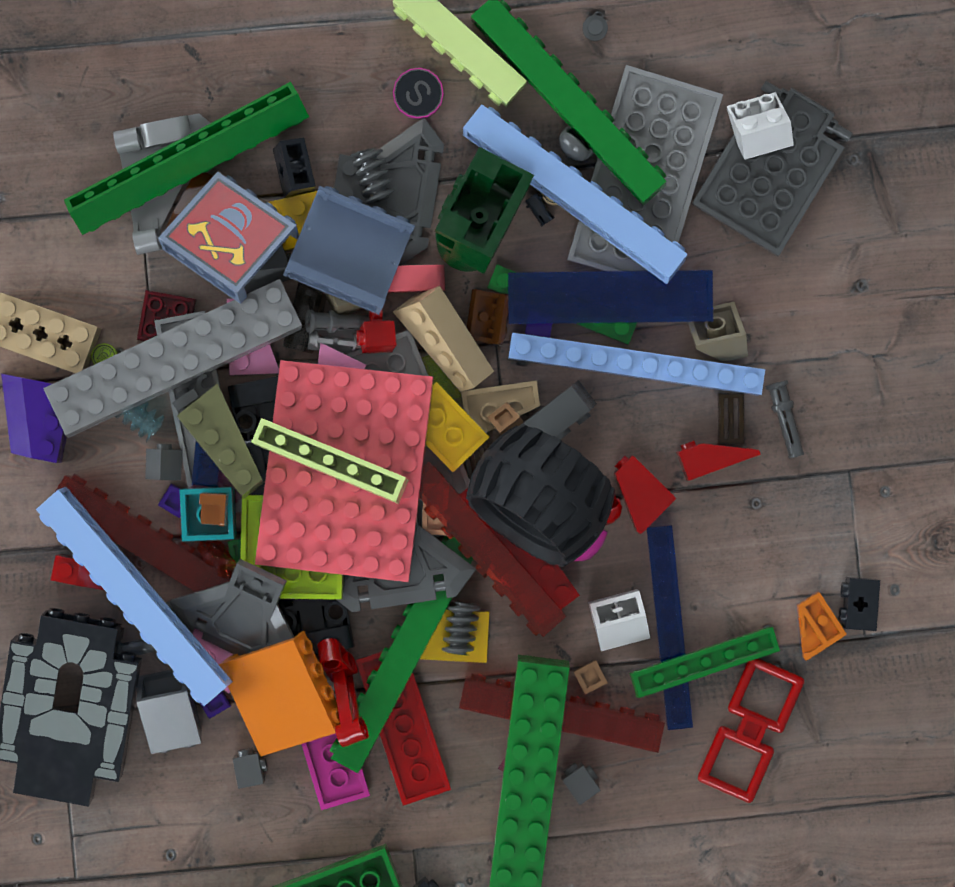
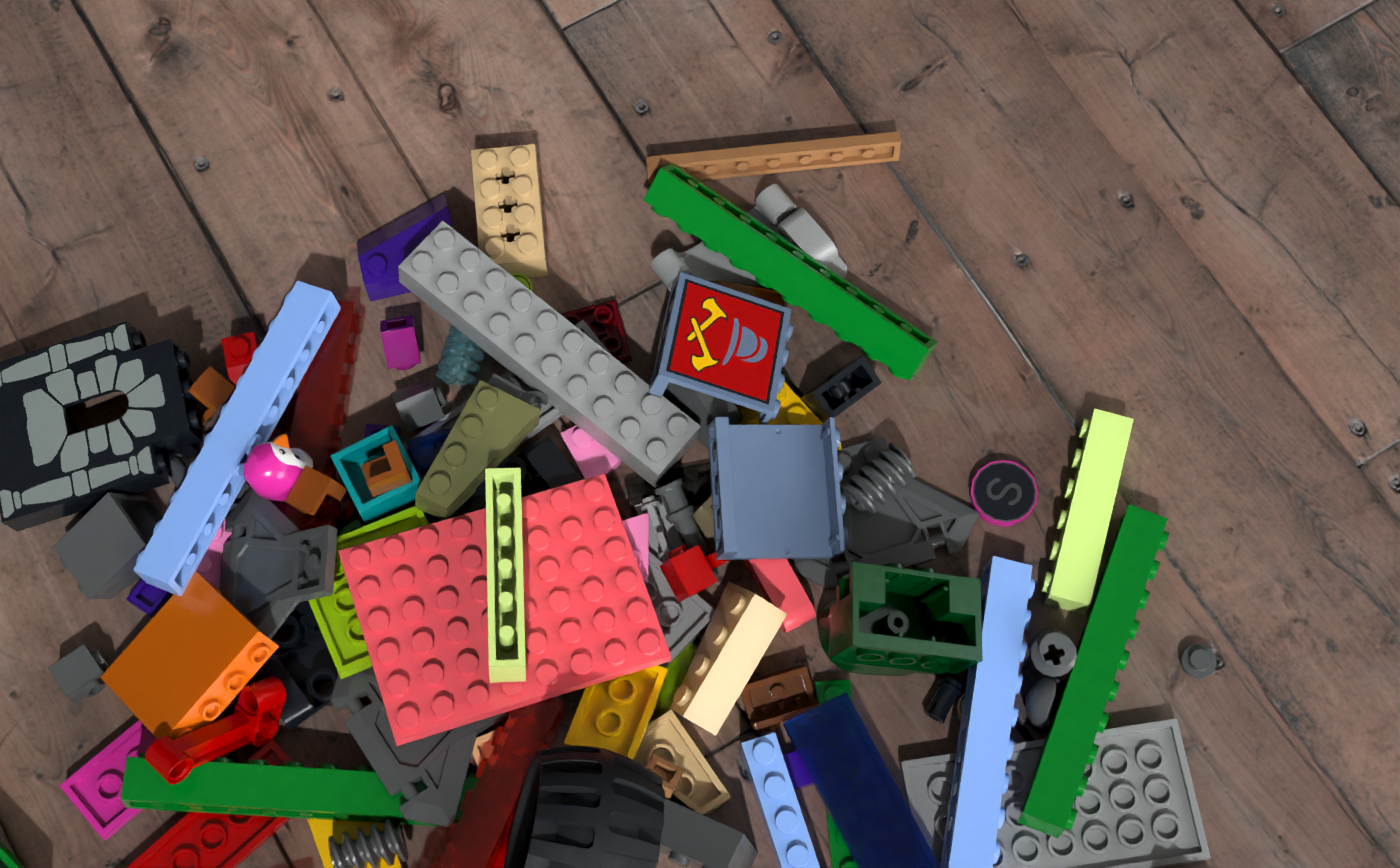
camera: 55 degrees right, 20 degrees down
(89, 603) = (211, 390): none -> dark orange panel
(92, 115) = (781, 157): none -> medium nougat plate
(109, 455) = (400, 343): none -> magenta brick
(174, 583) = (274, 468): none -> dark pink piece
(201, 563) = (311, 490): none -> dark orange panel
(546, 122) = (1066, 656): none -> dark grey piece

